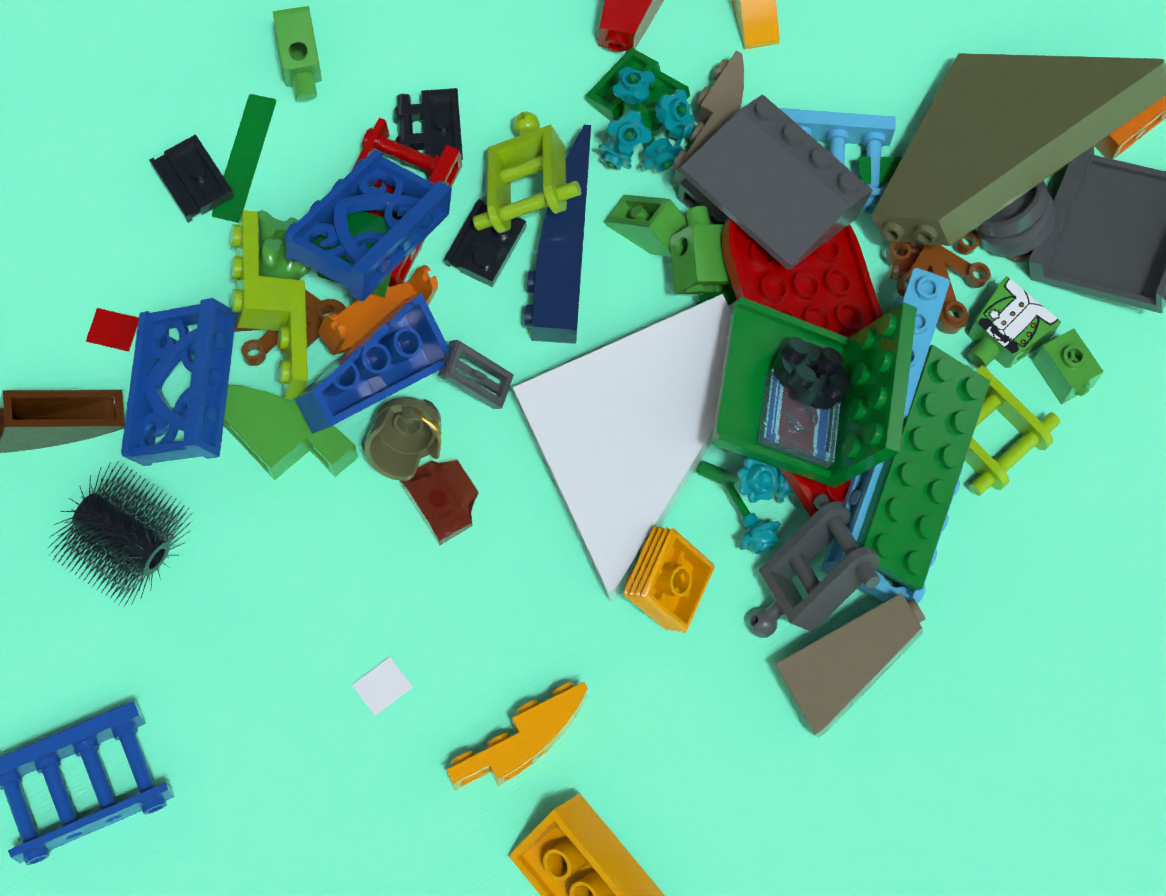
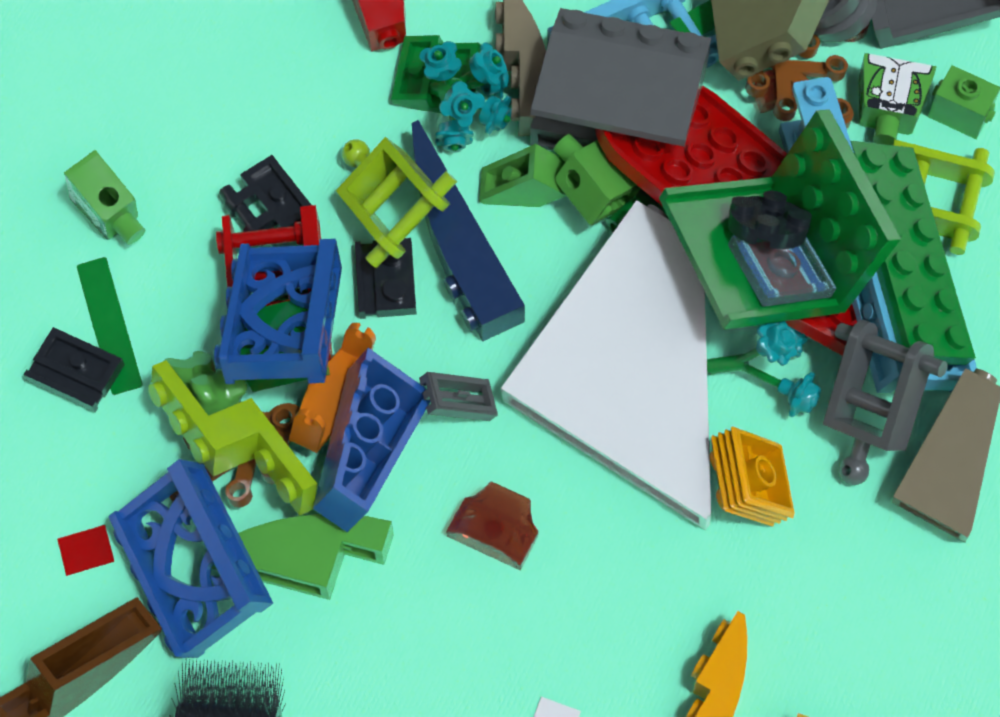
camera: 25 degrees left, 5 degrees down
(402, 435) = (427, 486): olive helmet -> none

